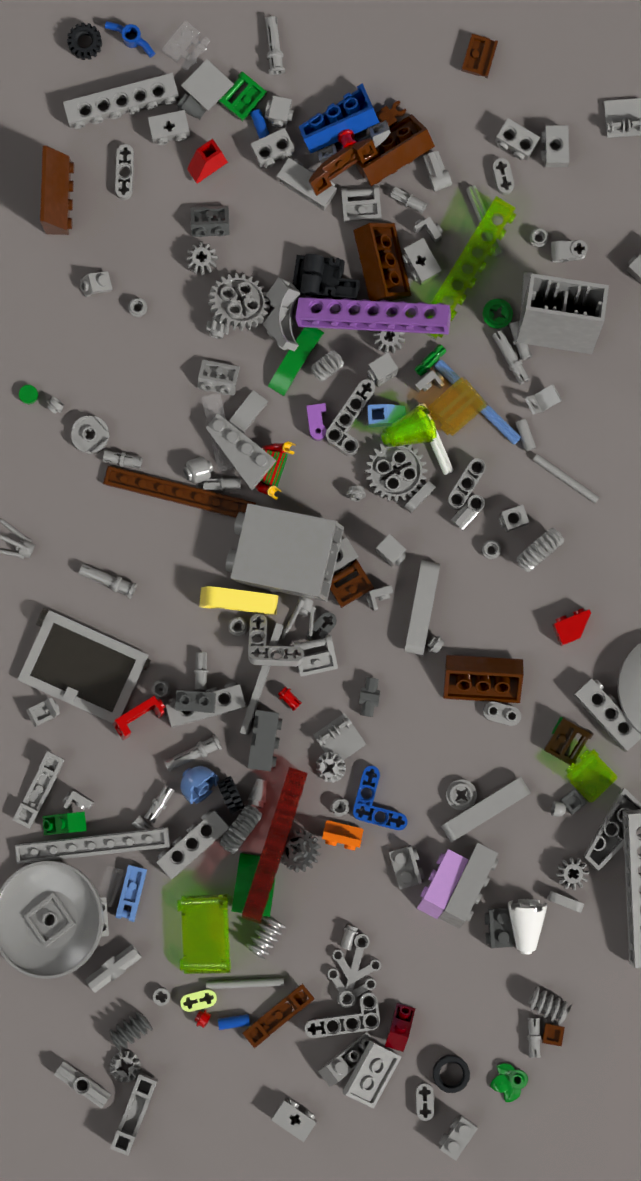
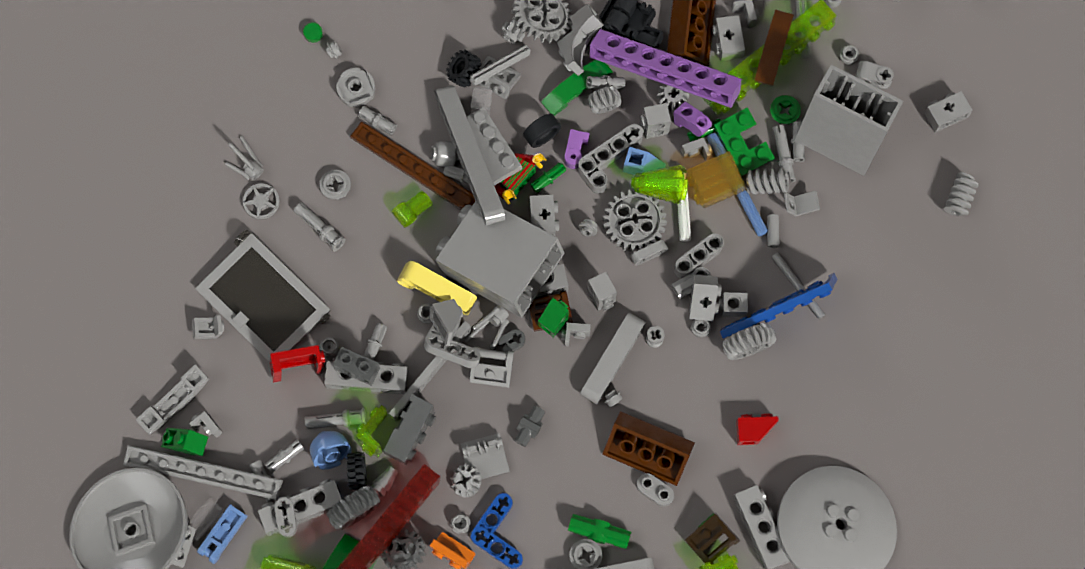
camera: 20 degrees right, 10 degrees down
(44, 575) = (261, 201): none -> light grey wheel
(109, 526) = (328, 179): none -> light grey gear
(177, 381) = (462, 67): none -> black tyre
(185, 535) = (408, 211): none -> clear neon green piece
(188, 856) = (280, 518): none -> light grey beam
(218, 366) = (500, 65): none -> light grey axle
(223, 466) = (470, 155): none -> light grey beam
(232, 767) = (364, 432): none -> clear neon green bracket
(248, 411) = (513, 117): light grey slope -> none
(260, 628) = (446, 319): none -> light grey slope
(280, 416) = (542, 130): none -> black tyre
(286, 695) = (450, 399): red pin -> none
(301, 458) = (547, 177): none -> green axle
(311, 485) = (544, 205): none -> light grey brick
(322, 348) = (605, 81): none -> light grey pin
(357, 591) = (554, 317): none -> green slope
(415, 356) = (691, 119): none -> medium lavender leg
(448, 577) = (658, 341): none -> light grey bush
(453, 355) = (729, 134): none -> green plate
(466, 769) = (599, 531): none -> green piece
(468, 260) = (773, 47): none -> reddish brown slope
(485, 523) = (704, 287): none -> light grey brick
(505, 392) = (765, 182): none -> light grey piece
(559, 505) = (783, 305): none -> blue wing

